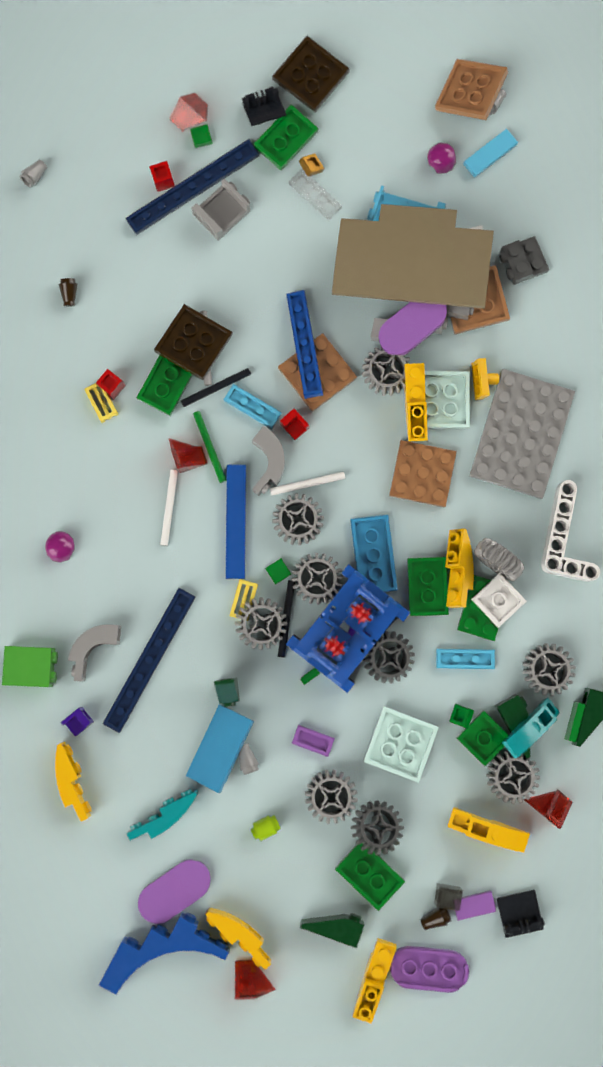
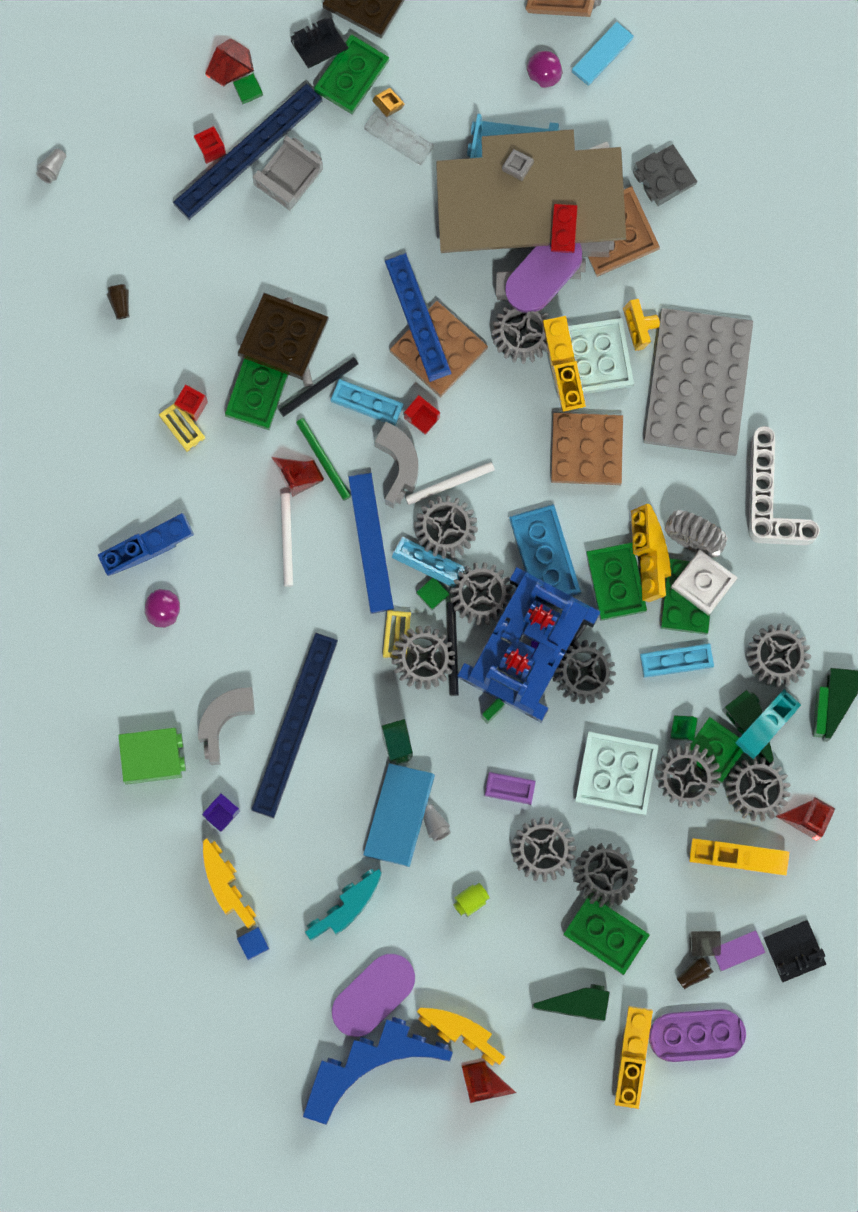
camera: 10 degrees left, 5 degrees down
(55, 494) = (146, 545): none -> blue slope
(85, 832) = (253, 943): none -> blue tile
(284, 550) = (435, 567): none -> medium azure tile
(406, 232) = (517, 164): none -> light grey tile
(435, 290) = (564, 228): none -> red plate
(474, 766) = (679, 772): none -> light grey gear

